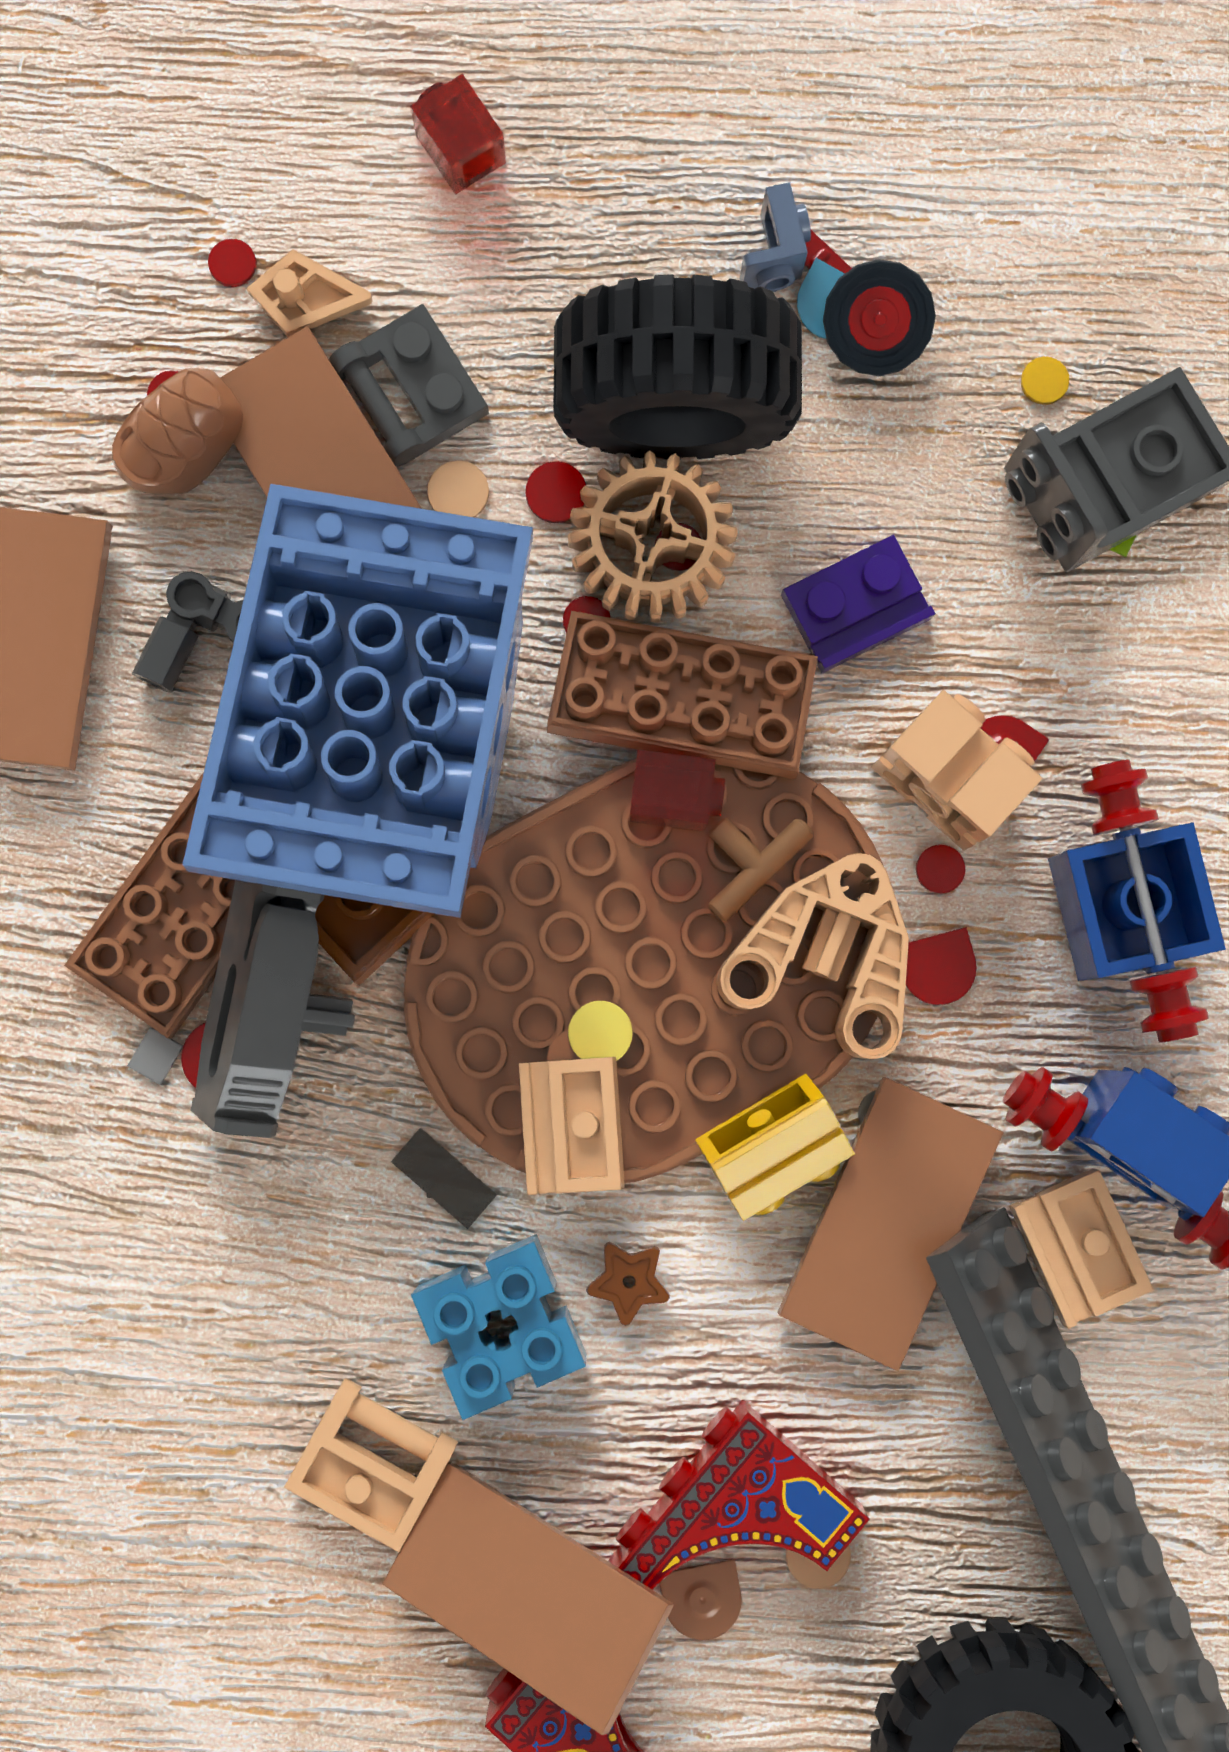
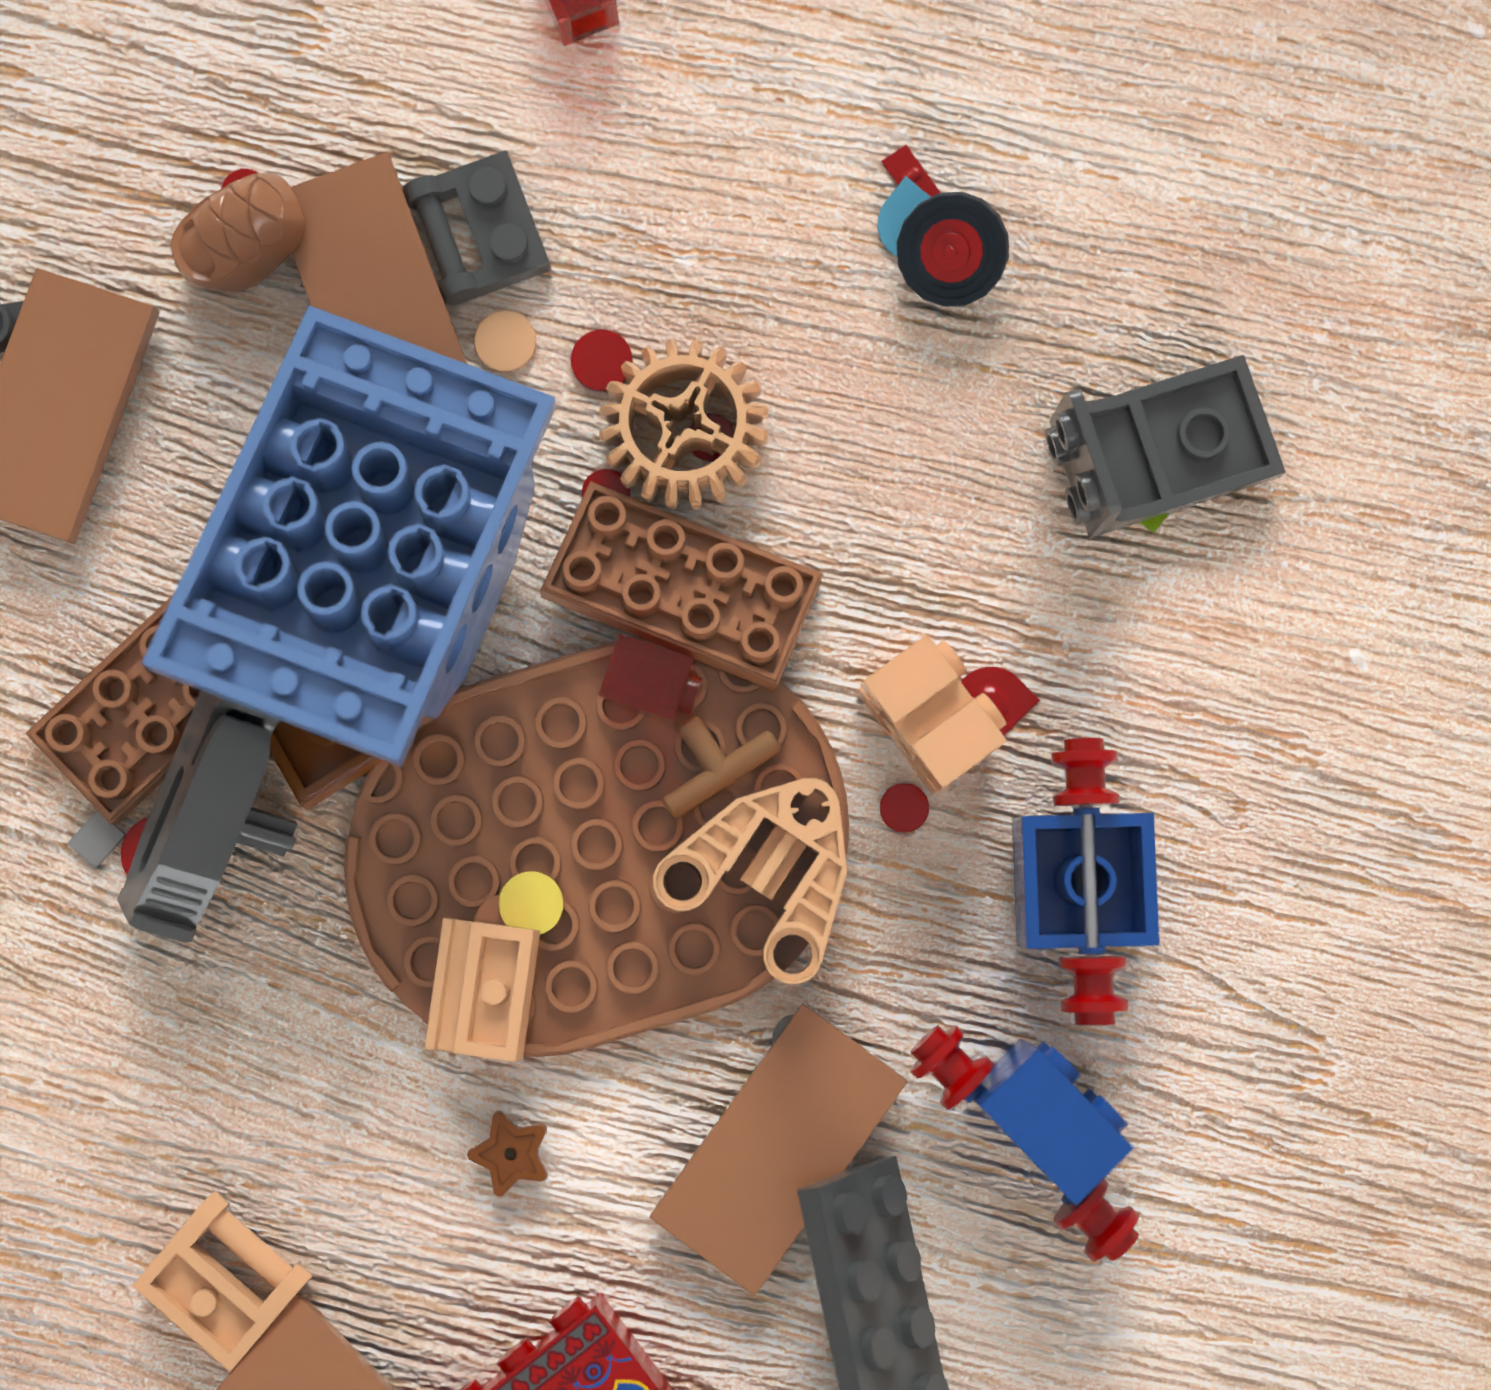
camera: 20 degrees right, 0 degrees up
(192, 604) = (220, 403): dark grey bar -> none
(232, 262) = (330, 73): red piece -> none
(305, 293) = (394, 118): light nougat piece -> none
(444, 1178) = (352, 1015): clear smoke window -> none
(482, 1364) = (351, 1206): dark azure brick -> none
(677, 367) = (731, 266): black tyre -> none
(775, 1147) = (677, 1052): yellow brick -> none
(786, 233) = (880, 145): sand blue bracket -> none
(857, 603) = (875, 528): dark purple plate -> none
(941, 967) = (882, 904): red piece -> none
(1044, 380) = (1110, 341): yellow piece -> none
(1081, 1248) = (963, 1211): light nougat plate -> none

